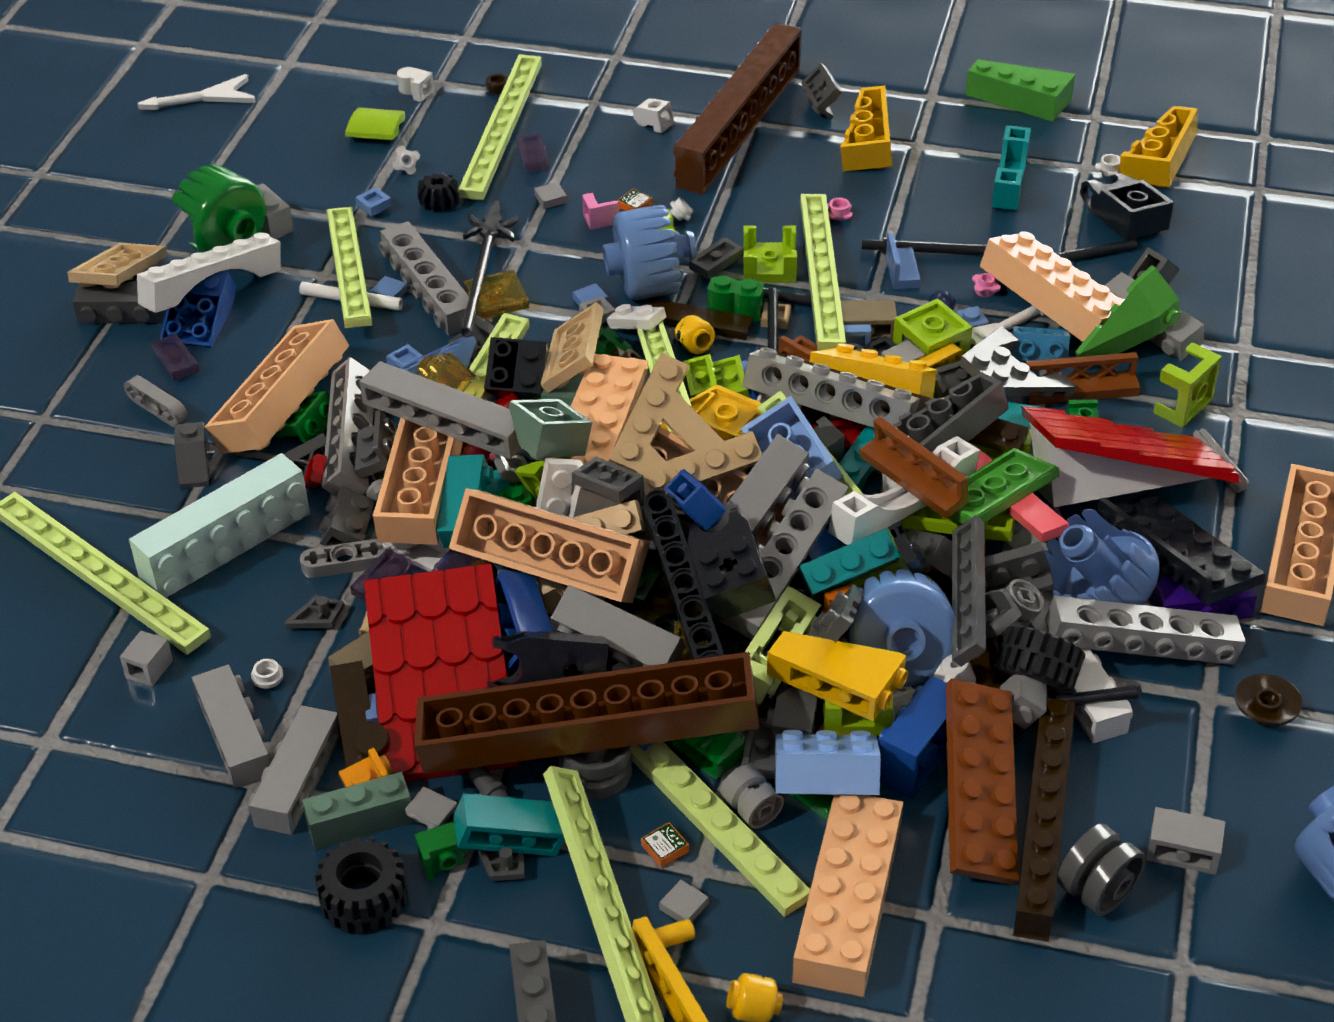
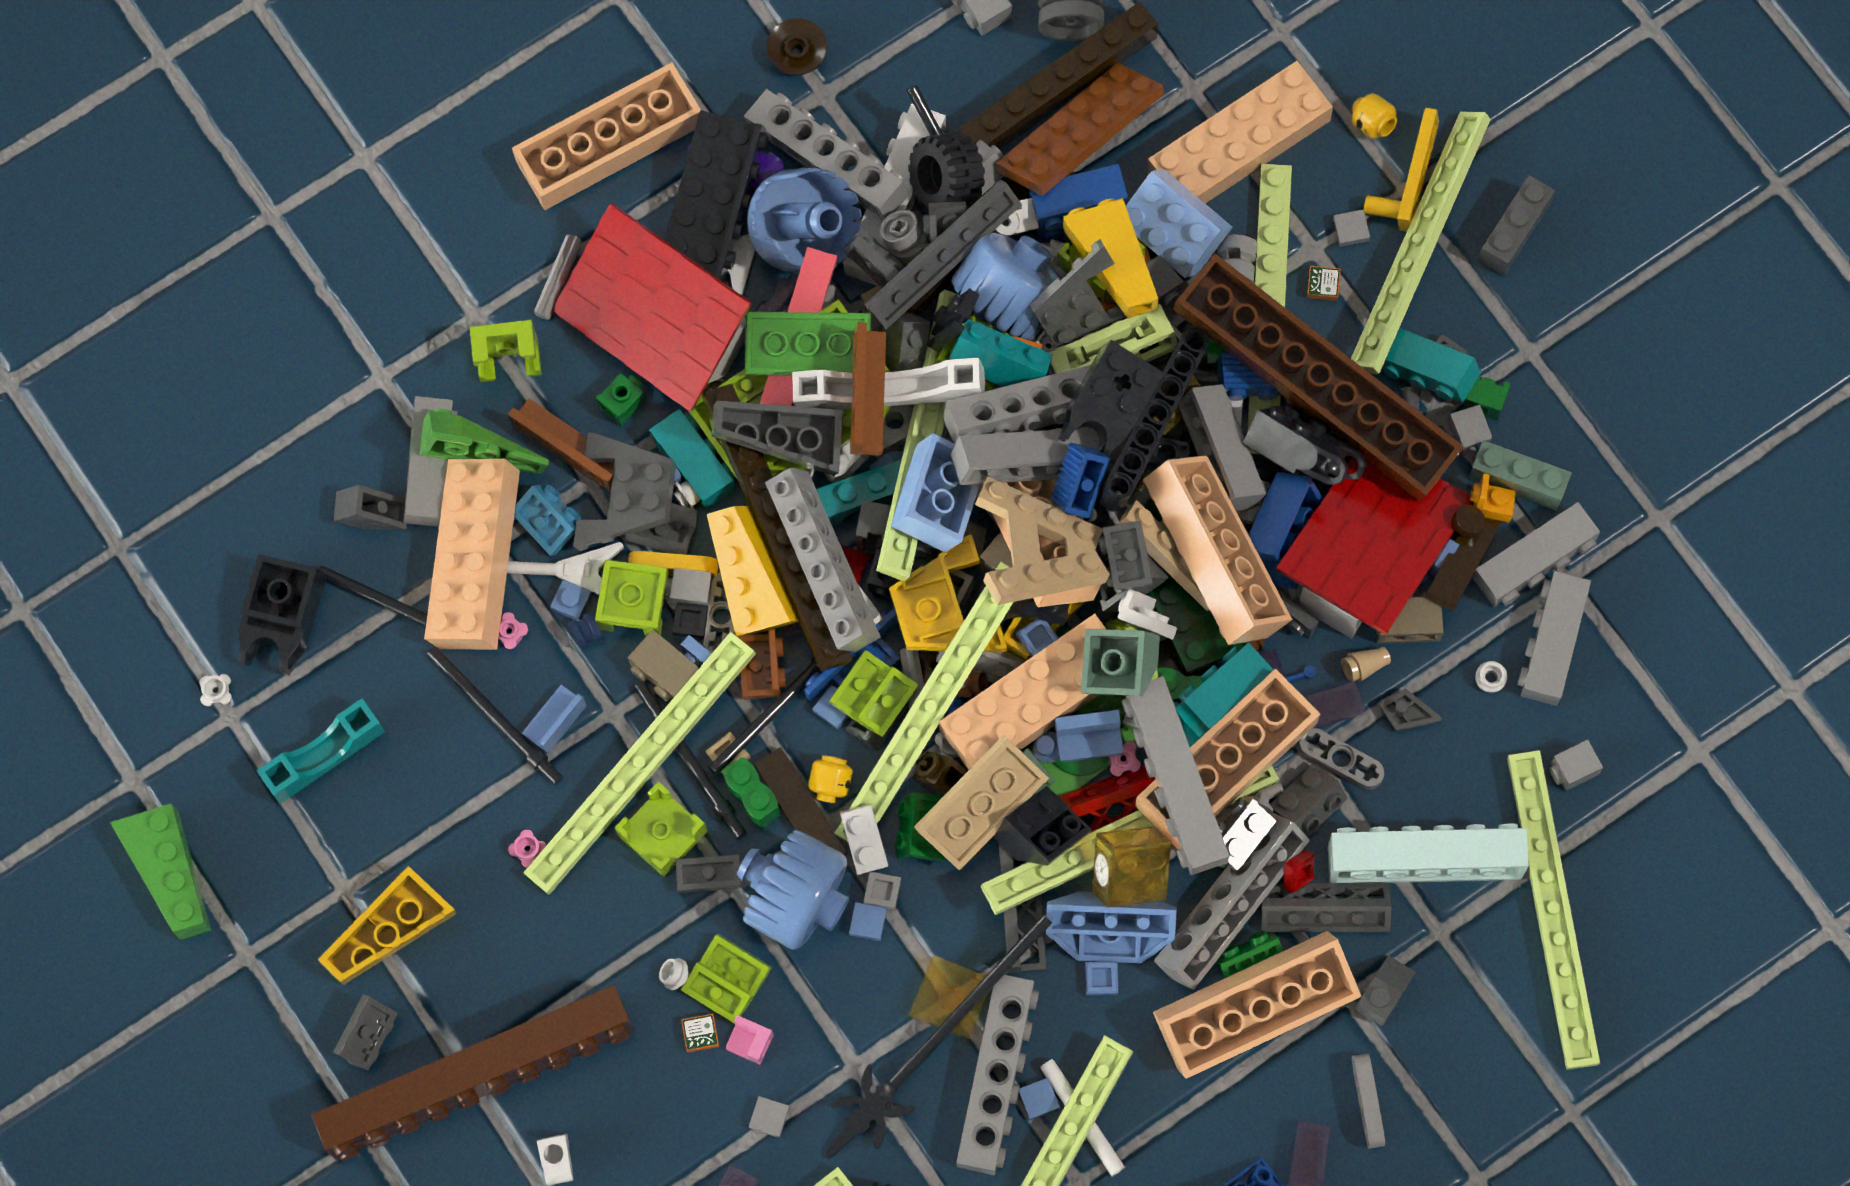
camera: 135 degrees left, 30 degrees up
(364, 907) = (1570, 382): black tyre -> none
(1162, 149) = (154, 654): yellow wedge -> none

